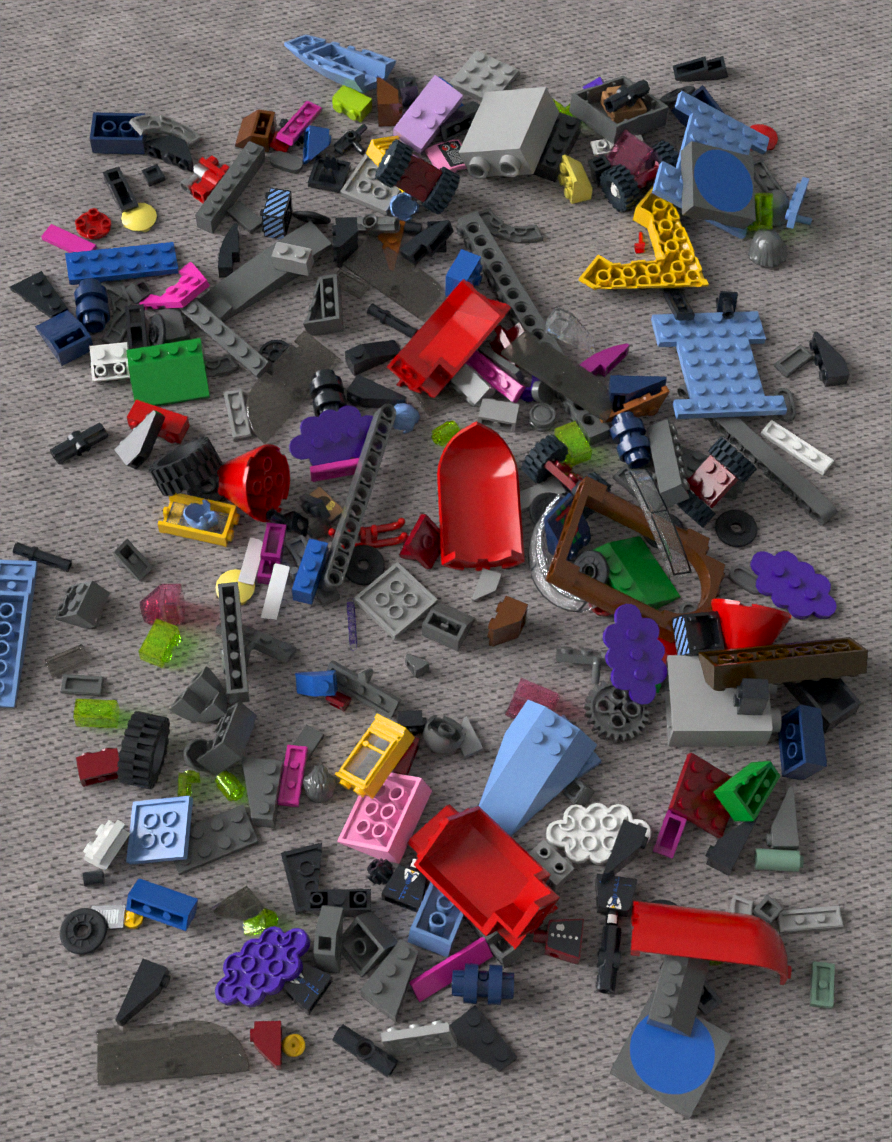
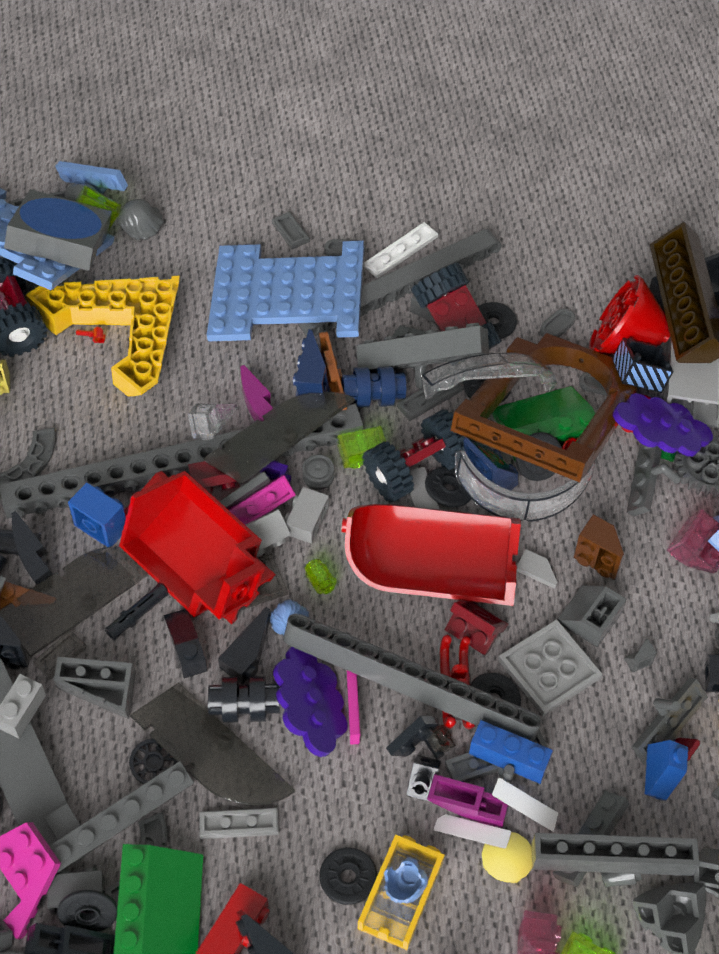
camera: 80 degrees left, 5 degrees down
(185, 466) = (311, 890): black tyre -> none
(256, 481) = (368, 808): red cone -> none
(332, 506) = (391, 730): medium nougat tile -> none
(352, 623) = (576, 720): dark purple piece -> none
(542, 392) = (293, 462): dark grey tile -> none
(678, 304) = (199, 309): black tile -> none
(727, 303) = (208, 267): black bracket -> none
(793, 585) = (569, 286): dark purple plate -> none
(831, 364) = (303, 198): black slope -> none

